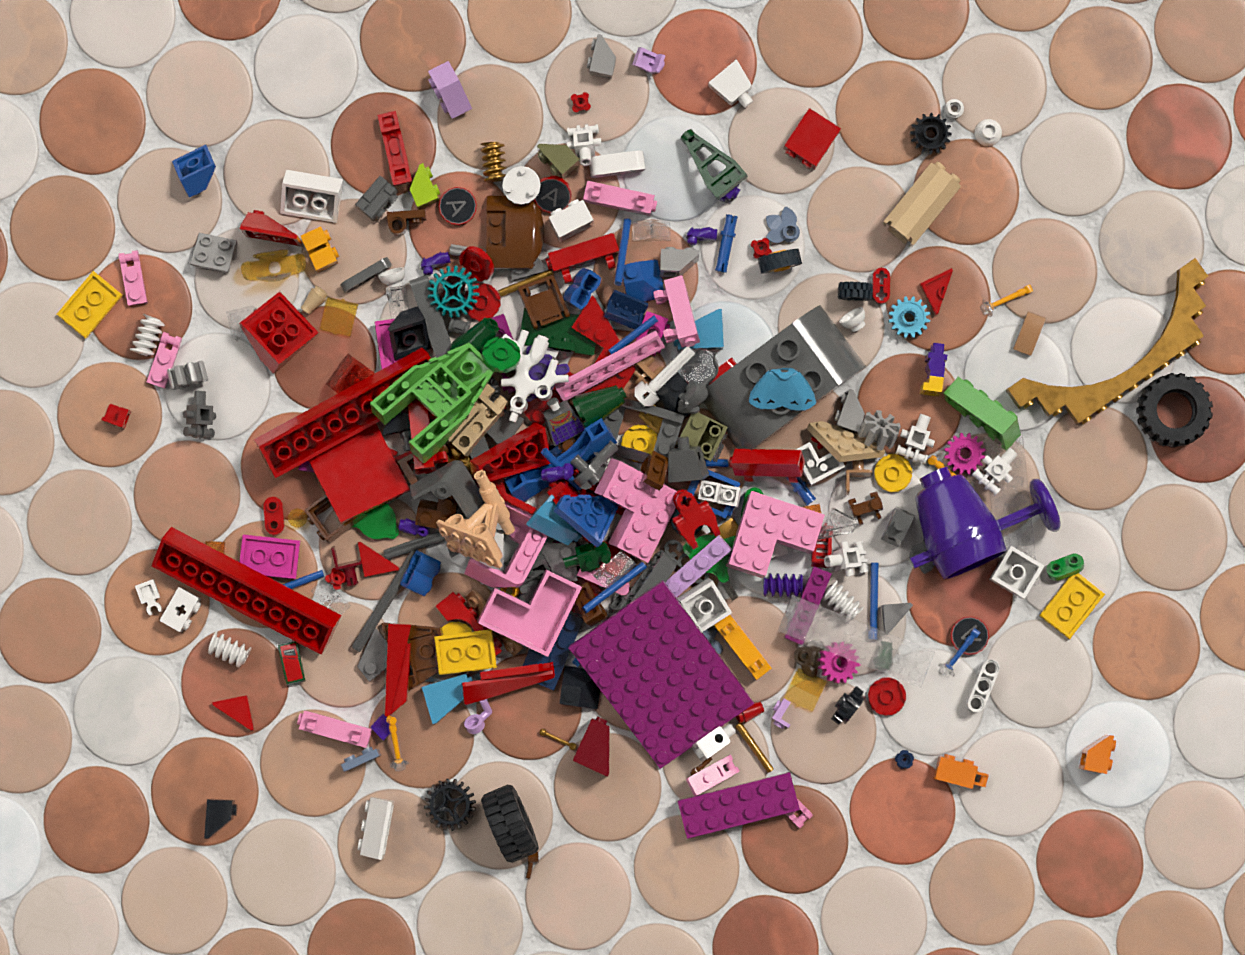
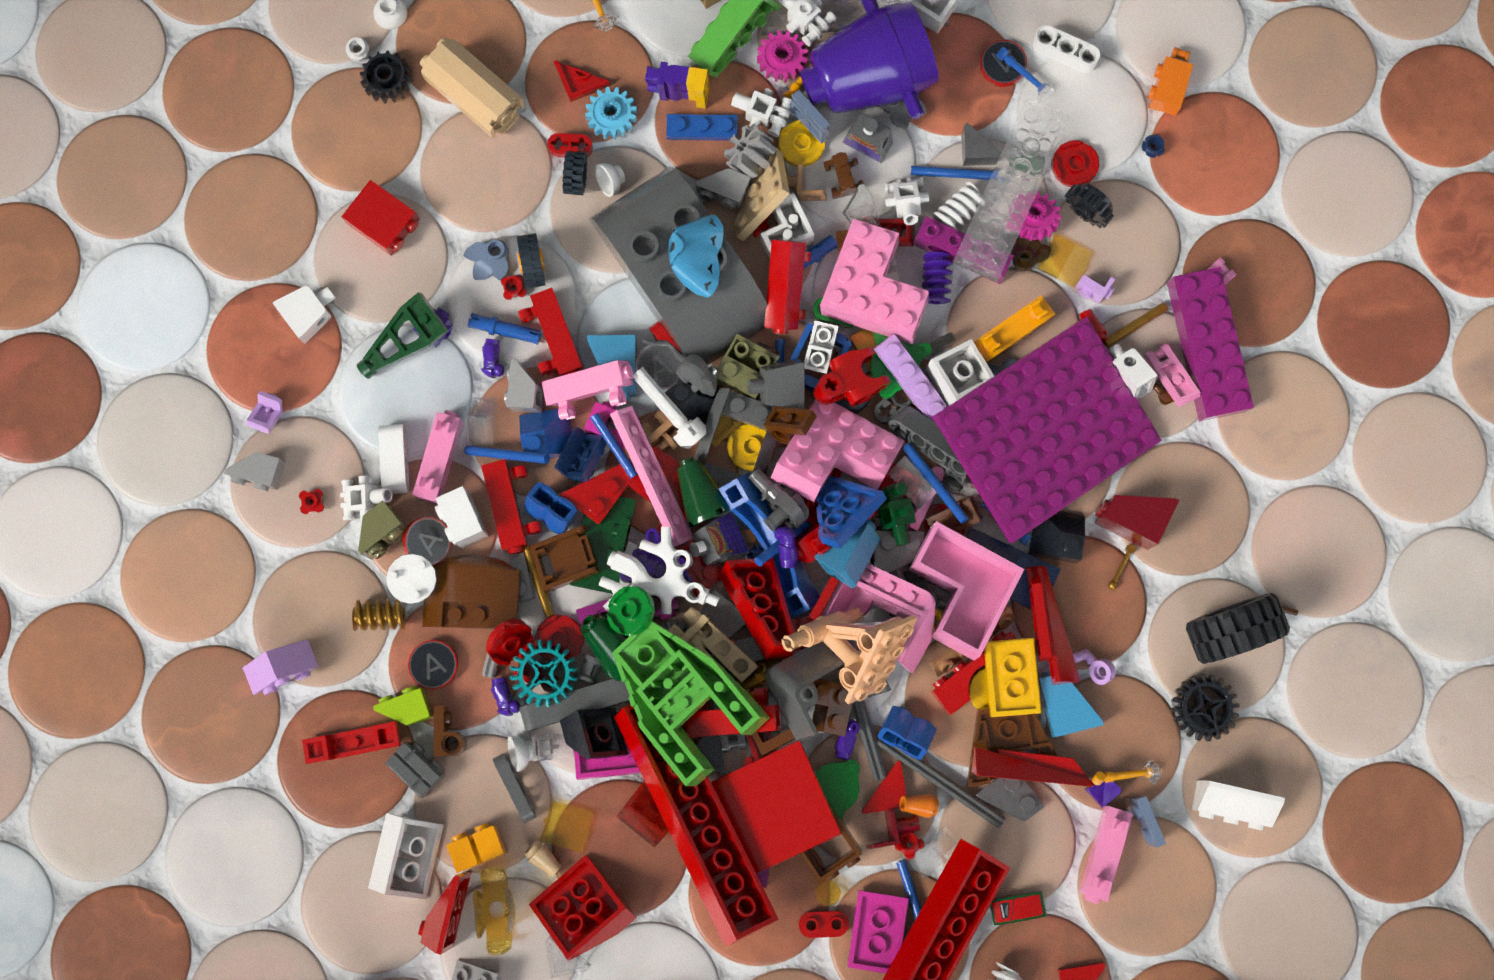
camera: 85 degrees left, 5 degrees down
(366, 585) = (922, 805): none -> orange cone
(722, 285) = (556, 333): none -> red brick
(902, 391) = (701, 127): none -> blue plate
(916, 473) = (810, 116): none -> sand blue plate

